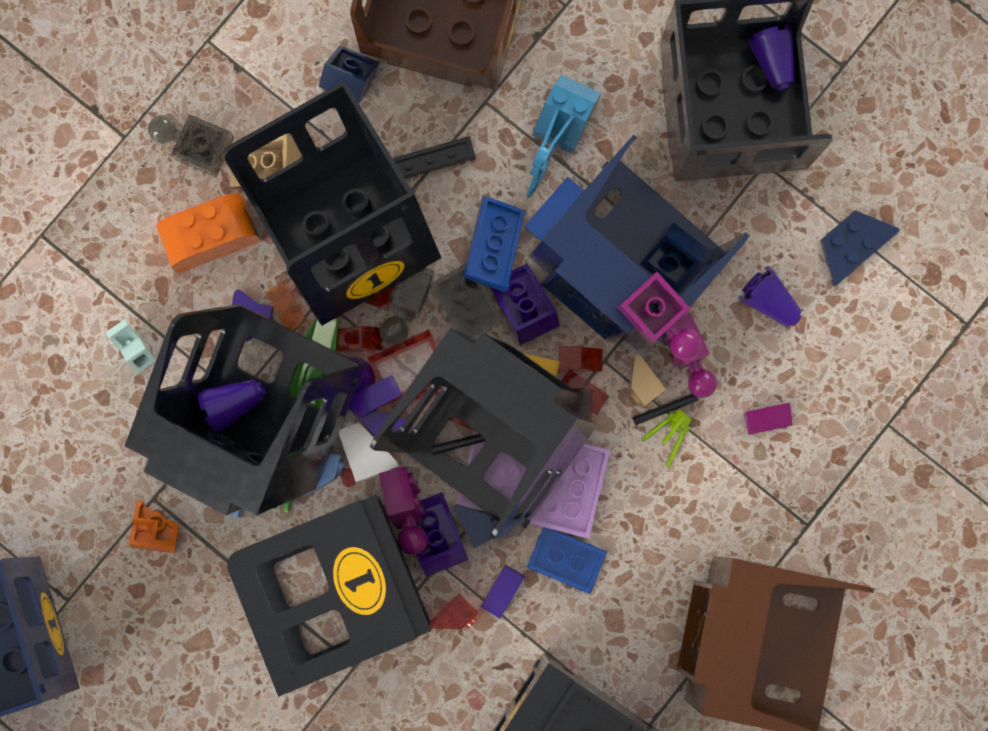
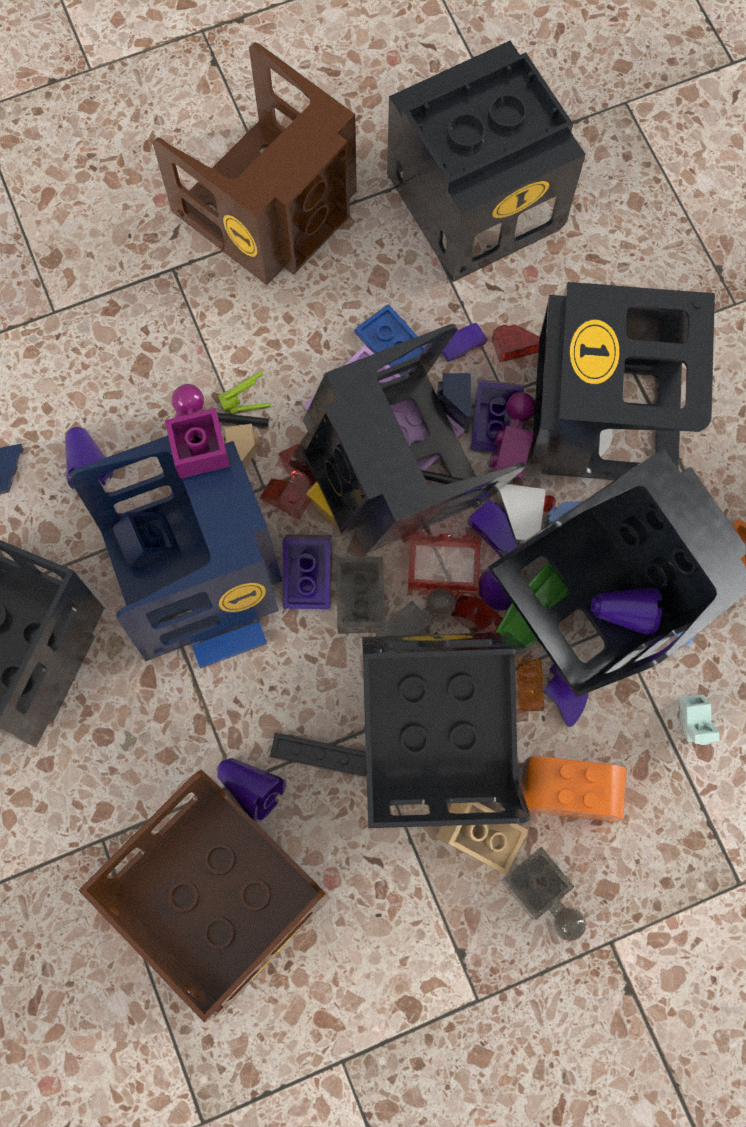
camera: 150 degrees left, 10 degrees down
(353, 68) = (353, 882): dark blue slope -> none
(376, 396) = (485, 550): dark purple slope -> none
(470, 101) = (251, 787): none -> dark purple cone
(494, 244) = (304, 635): blue tile -> none
(561, 123) = (174, 716): dark azure slope -> none
(768, 418) = (151, 366): magenta slope -> none

